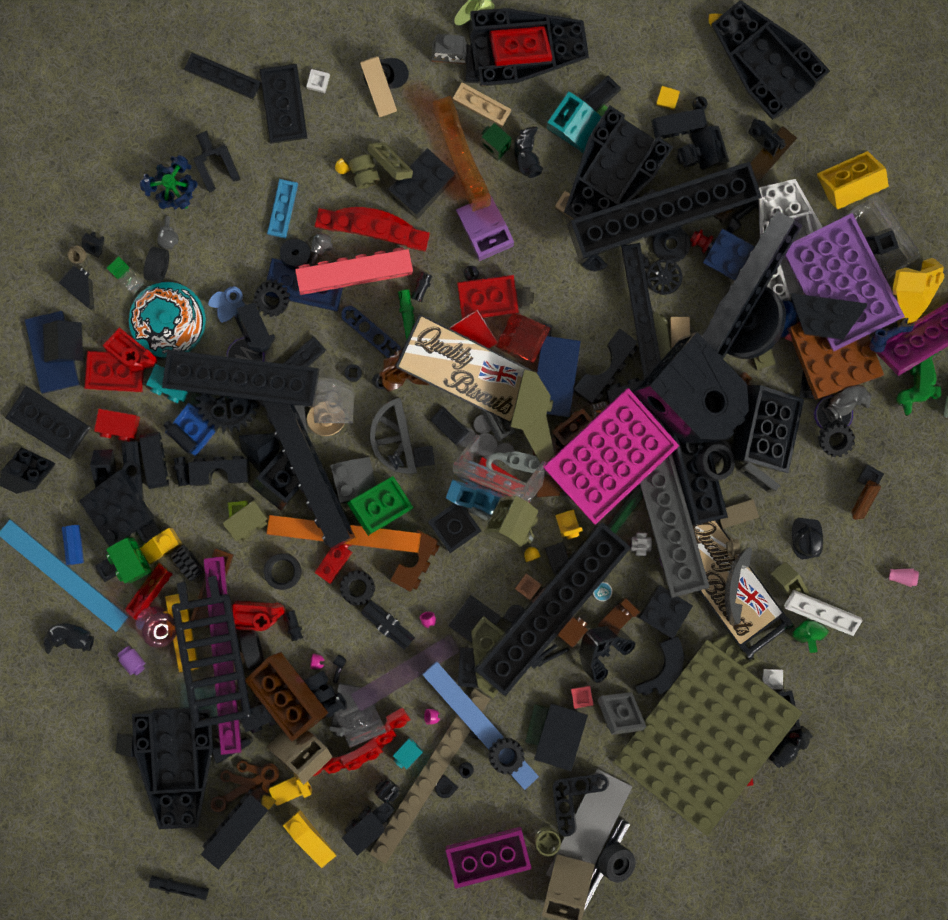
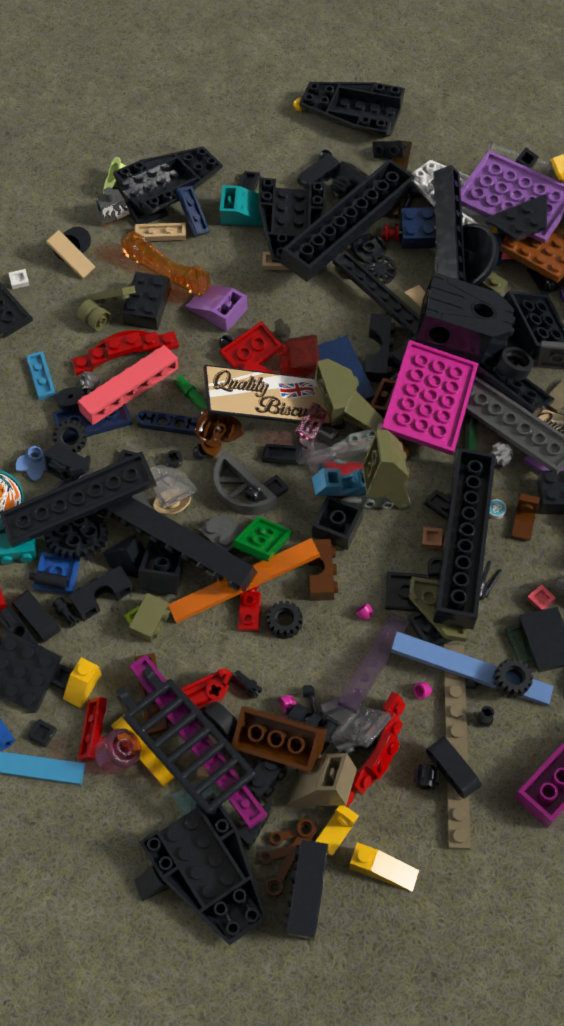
camera: 25 degrees left, 25 degrees down
(69, 634) = (33, 810): black animal -> none
(128, 560) = (58, 707): green brick -> none
(131, 661) = (110, 801): medium lavender brick -> none
(185, 889) = (283, 997): black pin -> none
(187, 563) = (114, 678): black tyre -> none
(268, 568) = (212, 657): black tyre -> none
(342, 167) = (74, 322): yellow hinge -> none
(368, 827) = (432, 816): black hinge -> none
(387, 625) = (331, 634): black piece -> none
(407, 753) = (423, 733): teal brick -> none
(410, 799) = (453, 767): none -> black beam
(421, 287) = (191, 368): black pin -> none
(445, 787) = (477, 745): black tile -> none
(486, 410) = (304, 433): none -> clear pink tile
(495, 141) = (187, 243): dark green brick -> none
(520, 46) = (165, 178): red tile -> none
(524, 101) = (192, 211): none -> dark blue tile
(527, 160) = (214, 245): black animal -> none
(531, 554) = (417, 512): yellow hinge -> none
(568, 524) = (432, 474): yellow bracket -> none
(573, 631) = (496, 540): reddish brown arch -> none
(594, 263) = (319, 288): black tile -> none
(597, 644) = (525, 539): black connector -> none
(667, 98) = (299, 164): yellow tile -> none
(853, 179) = (472, 145): yellow slope -> none

